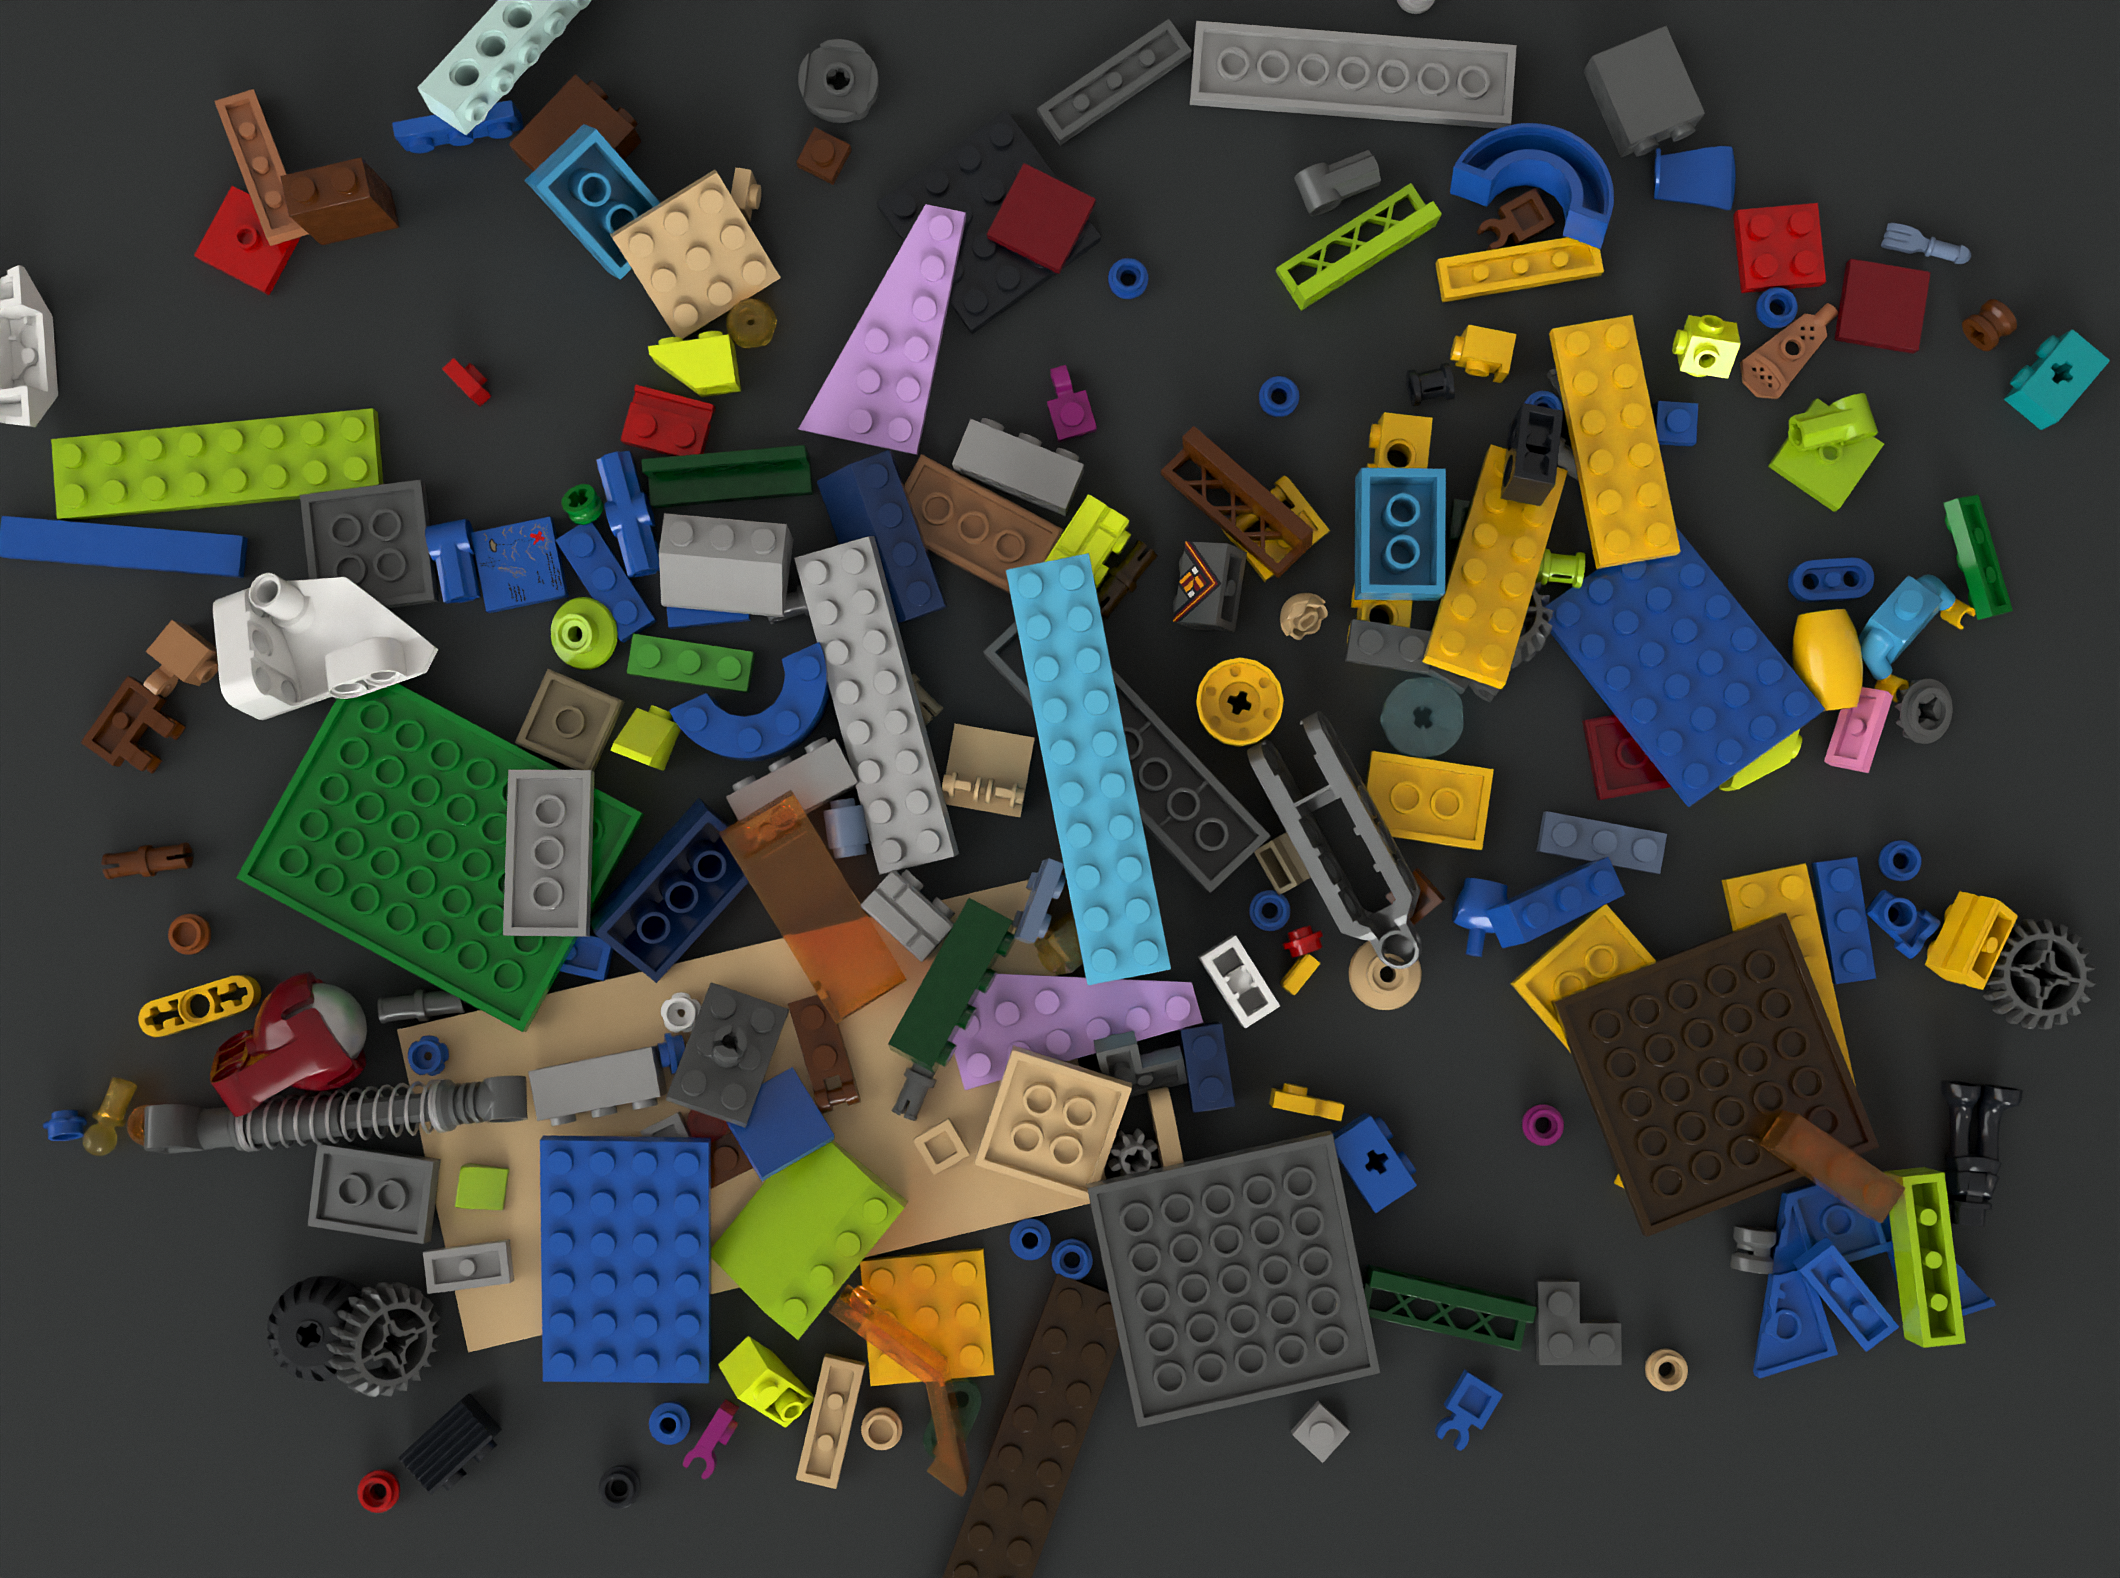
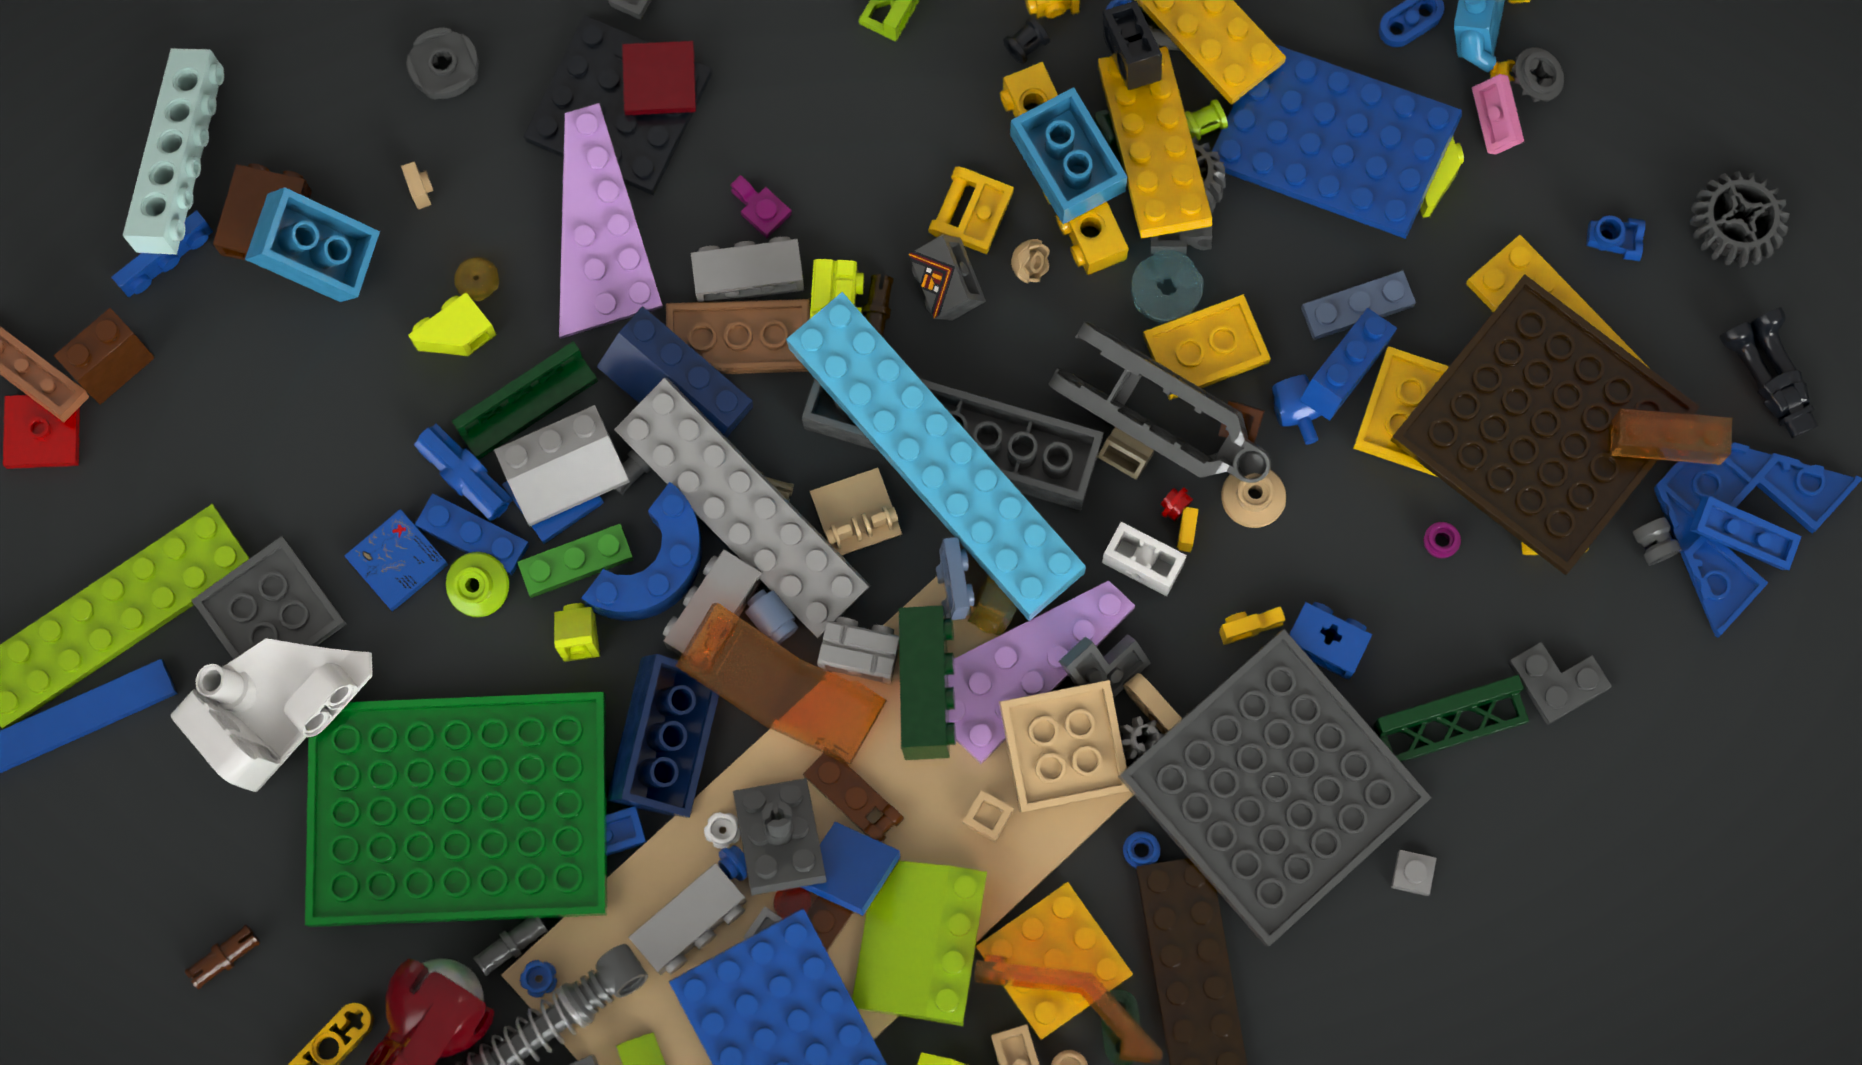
camera: 30 degrees left, 10 degrees down
(125, 721) = (144, 857): reddish brown plate -> none
(183, 657) = (164, 777): medium nougat brick -> none
(189, 934) = (288, 996): dark orange plate -> none
(453, 551) = (338, 577): blue piece -> none
(469, 380) = (277, 440): red plate -> none
(548, 853) = (548, 760): light grey plate -> none
(569, 722) = (505, 657): dark tan plate -> none
(585, 495) = (421, 485): green bush -> none
(667, 423) = (451, 388): red plate -> none
(695, 255) = (407, 247): tan plate -> none
(824, 156) = (462, 124): reddish brown plate -> none
(914, 1090) = (940, 778): dark grey pin -> none
(1030, 1225) = (1099, 864): blue plate -> none
(1132, 267) = (746, 79): blue plate -> none
(1206, 1067) = (1158, 638): dark blue brick -> none
(1229, 680) = (1020, 328): yellow wheel -> none
(1246, 490) = (934, 191): reddish brown fence -> none
(1282, 385) = (916, 102): blue plate -> none
(1282, 906) = (1136, 486): blue plate -> none
(1387, 646) = (1108, 245): dark grey plate -> none
(1471, 1403) = (1515, 781): blue plate -> none
(1618, 761) = (1335, 237): dark red tile -> none
(1675, 1378) = (1654, 662): tan plate -> none
(1829, 658) = (1443, 73): yellow piece -> none
(1843, 920) = (1574, 260): blue plate -> none
(1911, 858) = (1593, 185): blue plate -> none
(1926, 1259) = (1784, 468): lime brick -> none
(1970, 939) = (1674, 219): yellow brick -> none

